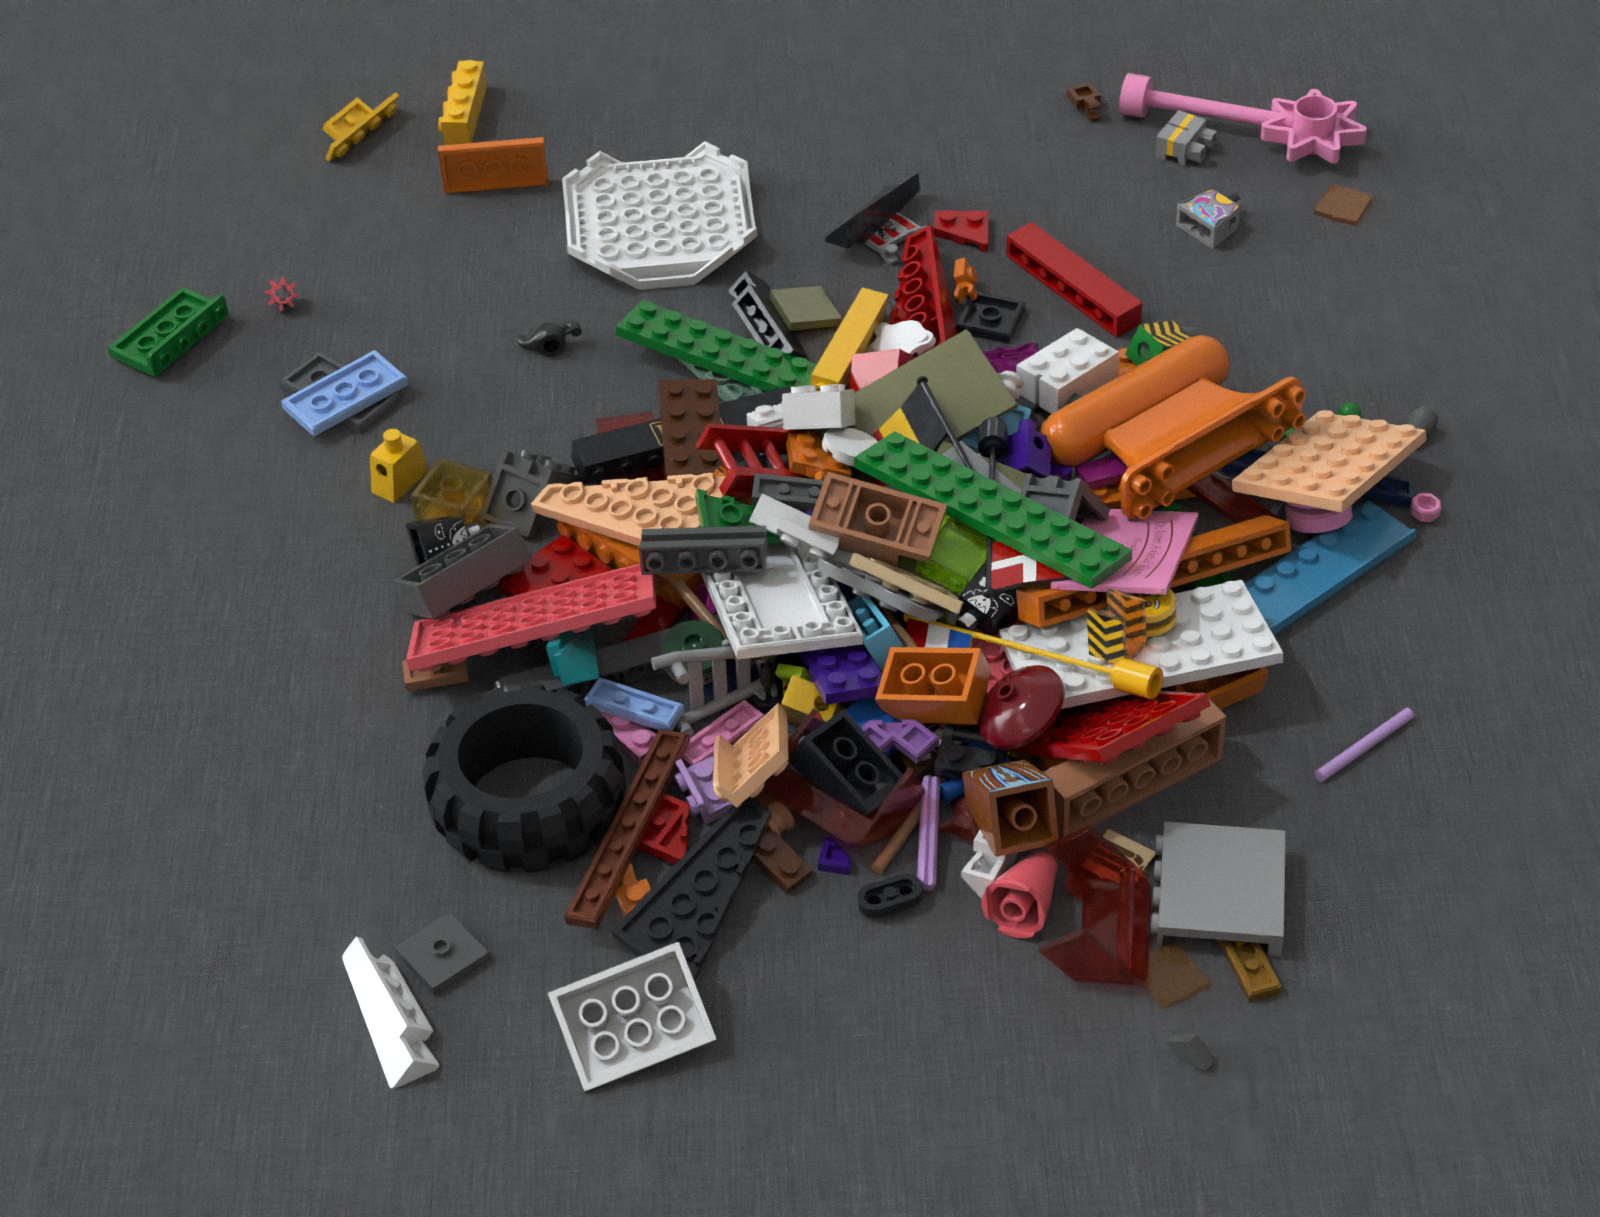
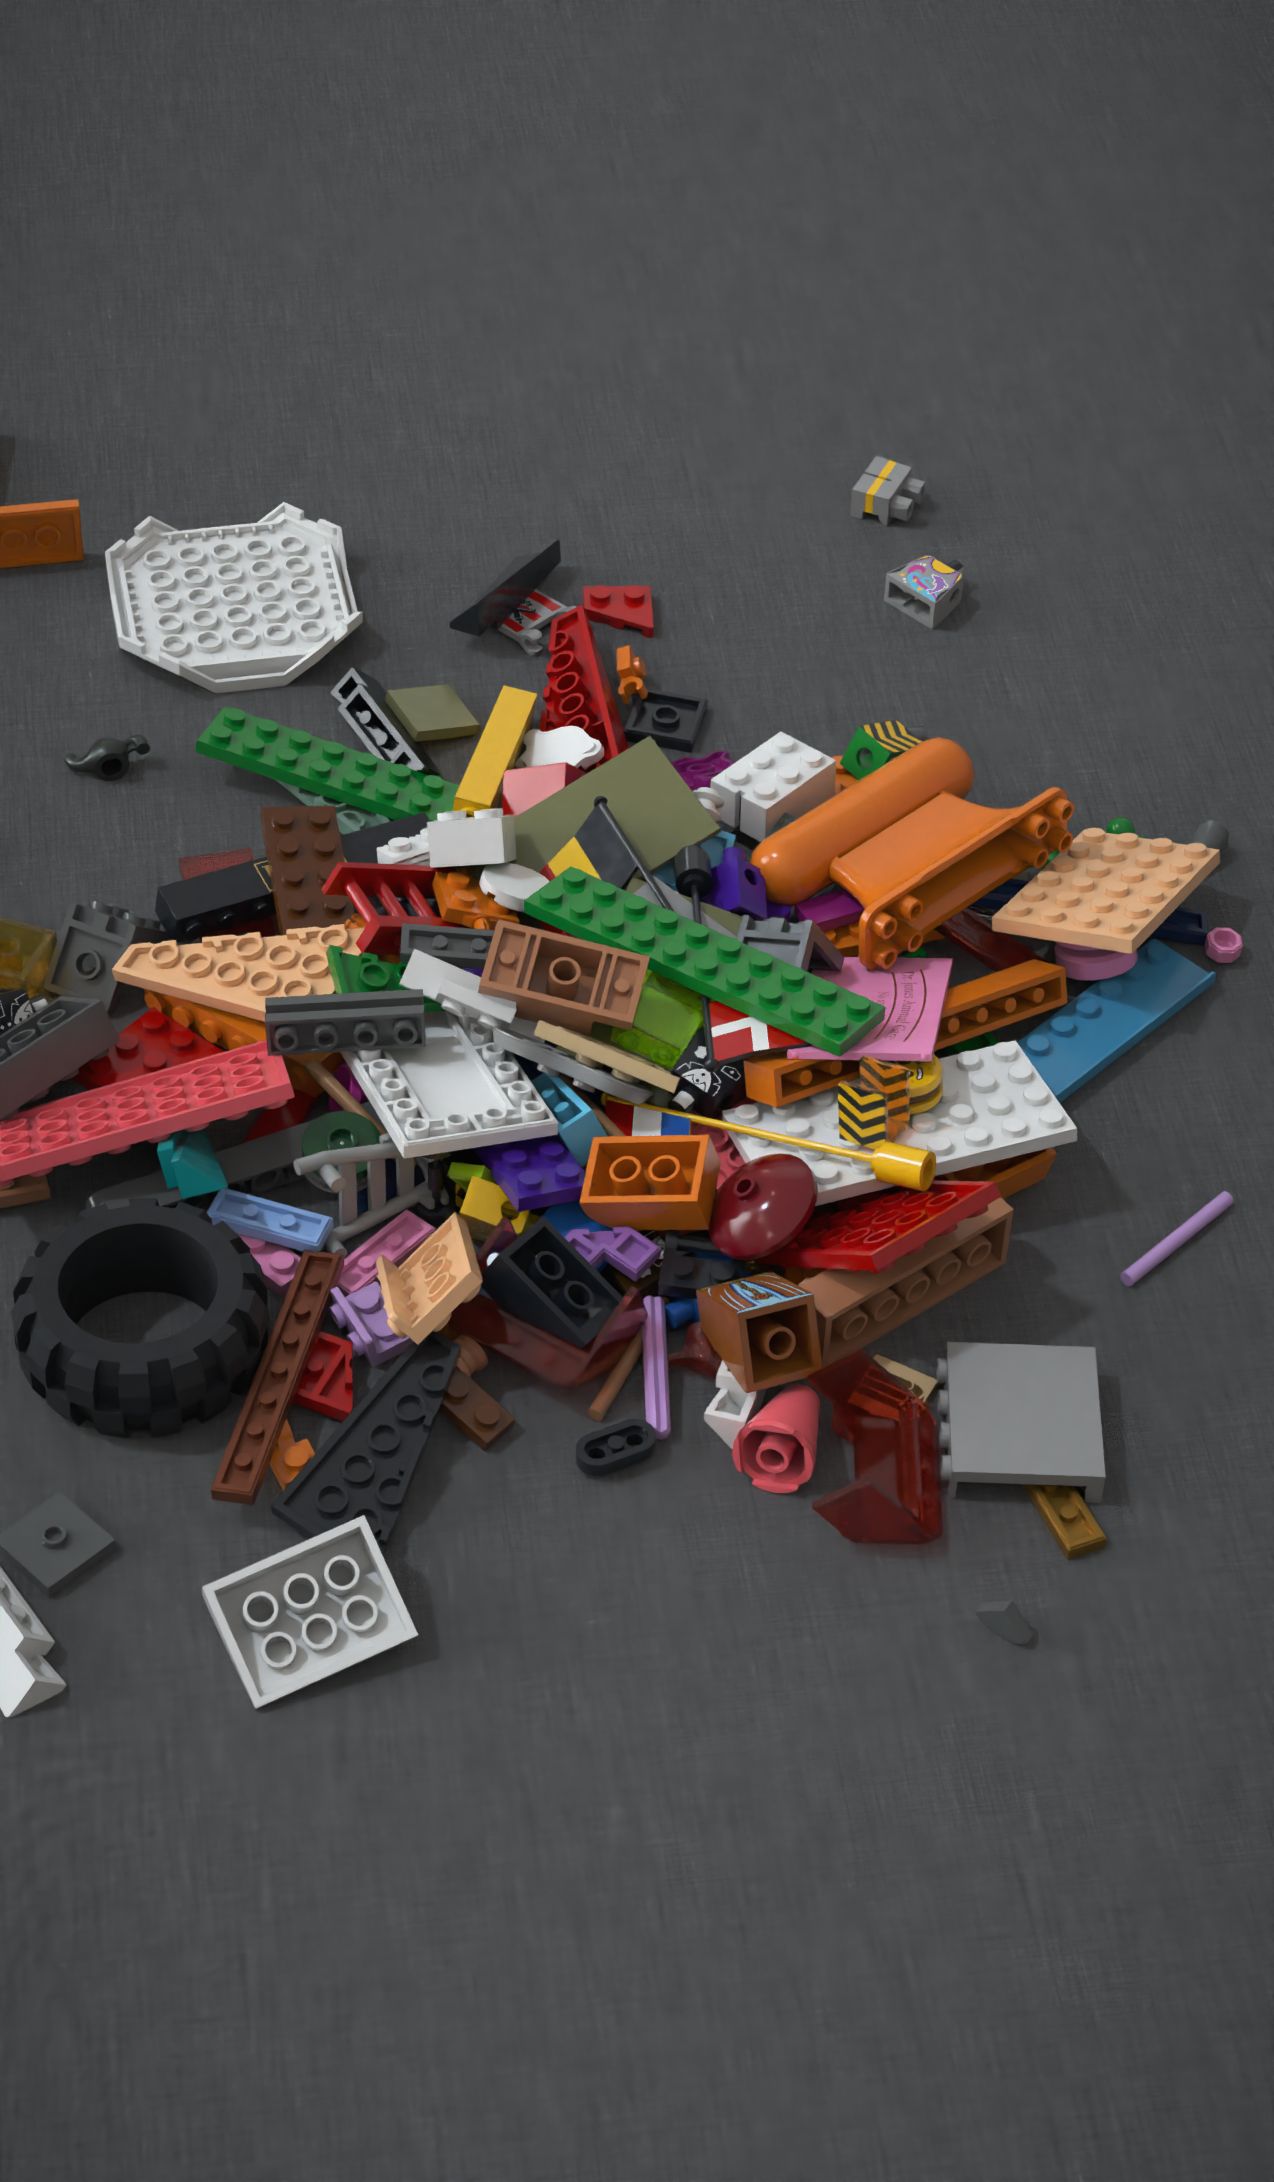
camera: 10 degrees left, 0 degrees up
(834, 858) = (540, 1404): dark purple tile -> none
(1074, 279) = (766, 671): red brick -> none
(1085, 97) = (759, 441): reddish brown plate -> none
(1172, 976) = (972, 1531): clear orange piece -> none
(1307, 125) = (1037, 473): bright pink piece -> none
(1343, 204) = (1087, 571): clear orange piece -> none

